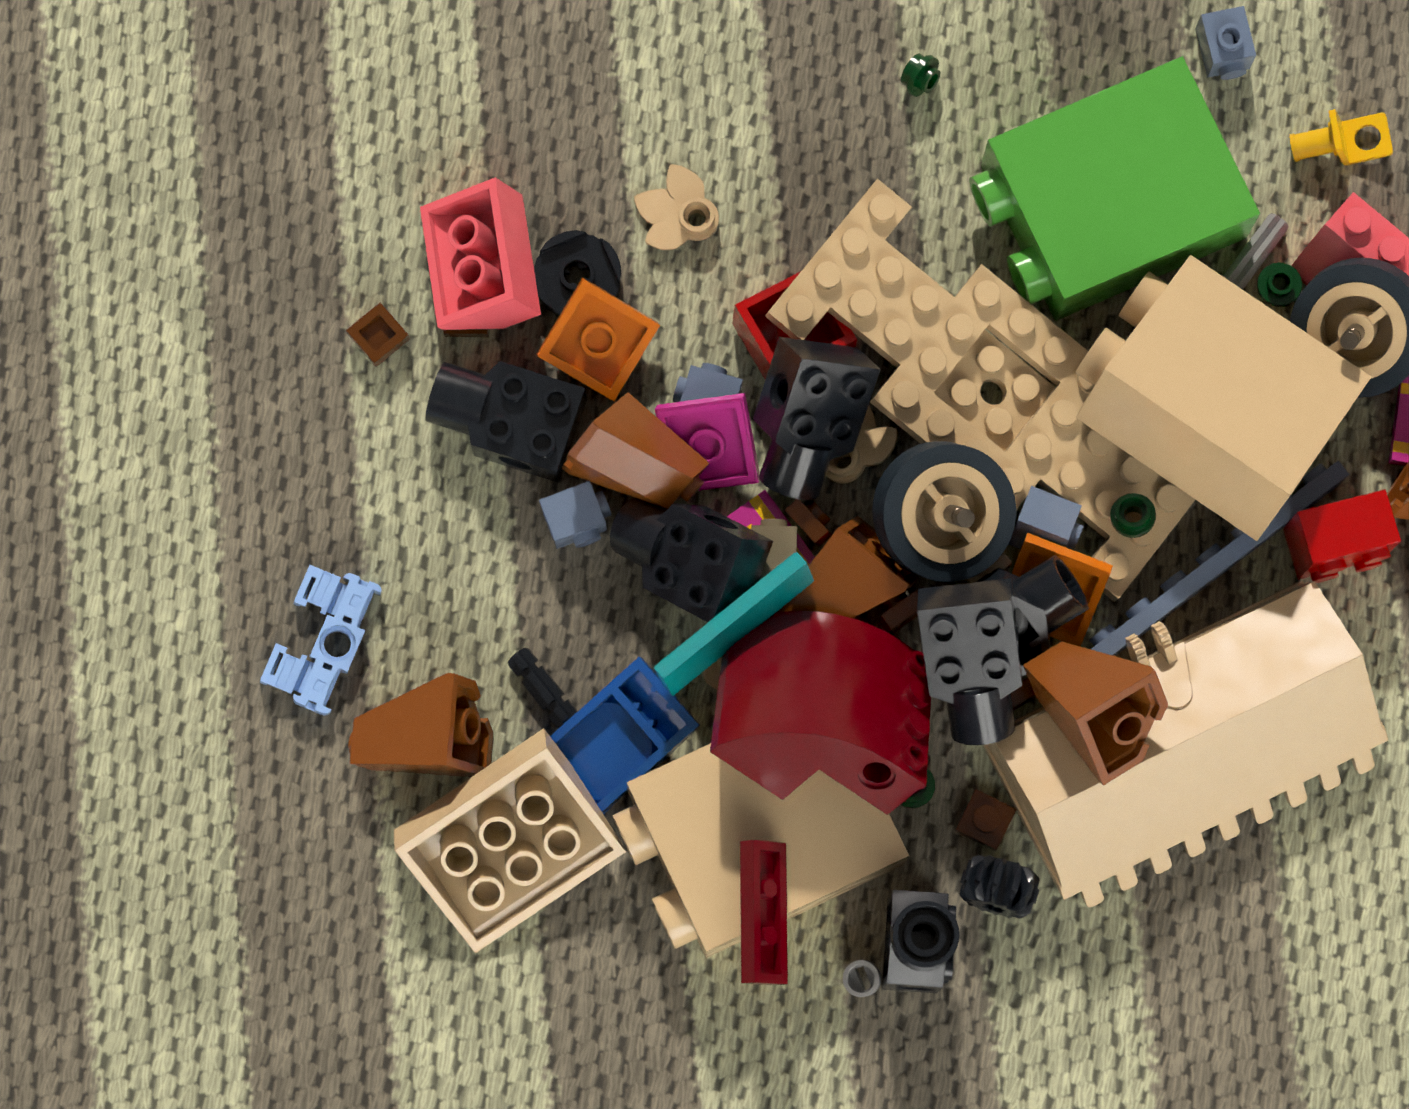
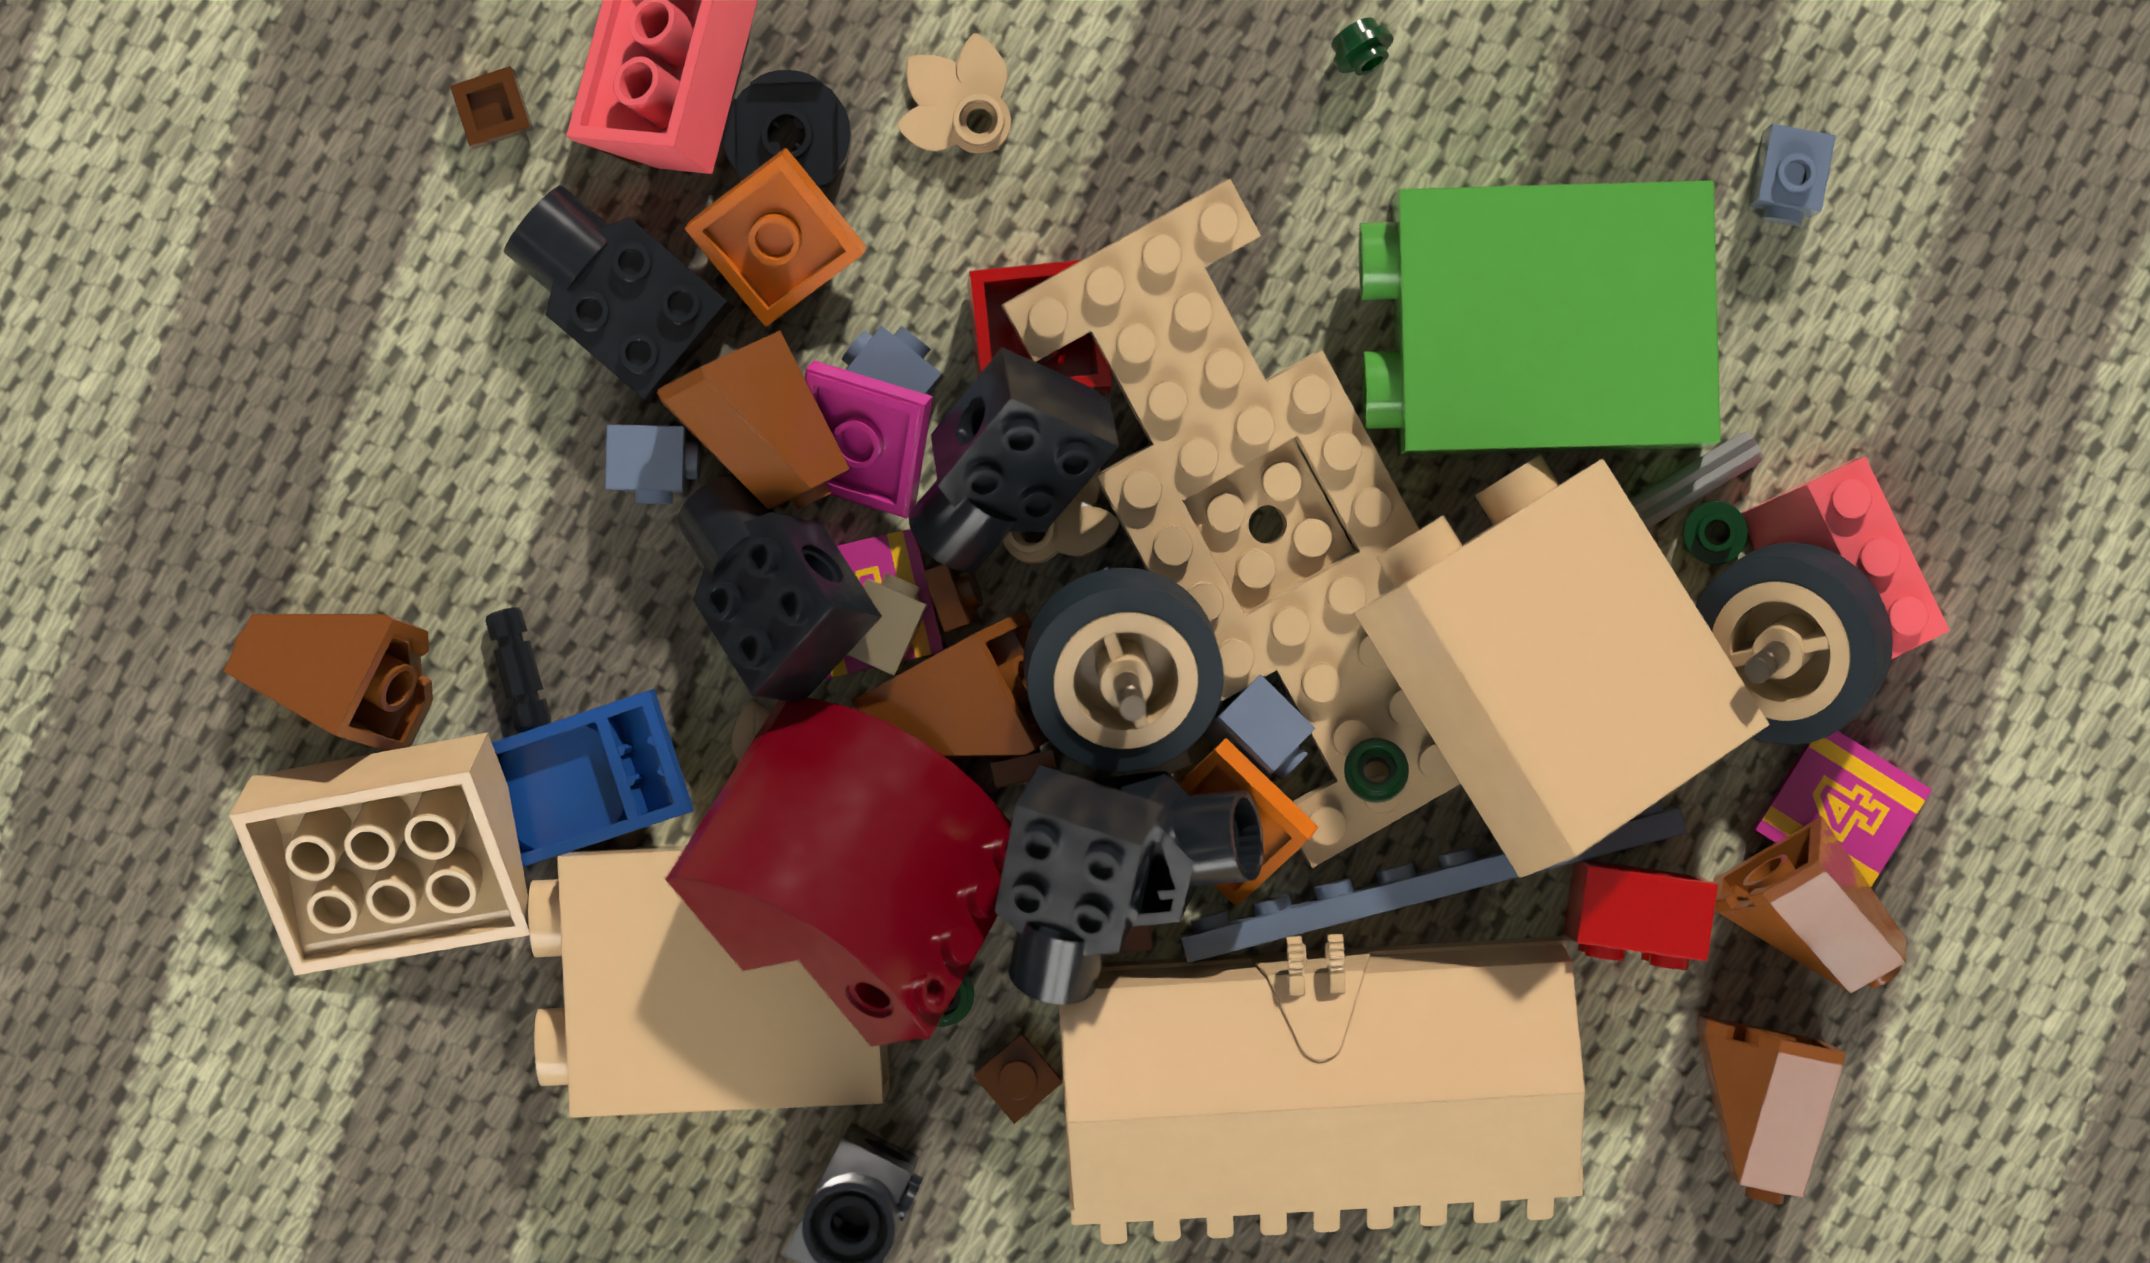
camera: 25 degrees right, 10 degrees up
(318, 679) = (310, 458): light blue piece -> none
(734, 623) = (783, 705): teal tile -> none
(763, 912) = (658, 1105): dark red plate -> none
(854, 982) = (760, 1213): light grey hinge -> none
(999, 886) = (993, 1177): black gear -> none
(1099, 704) = (1208, 1016): dark orange slope -> none
(1340, 139) = (1887, 369): yellow bracket -> none

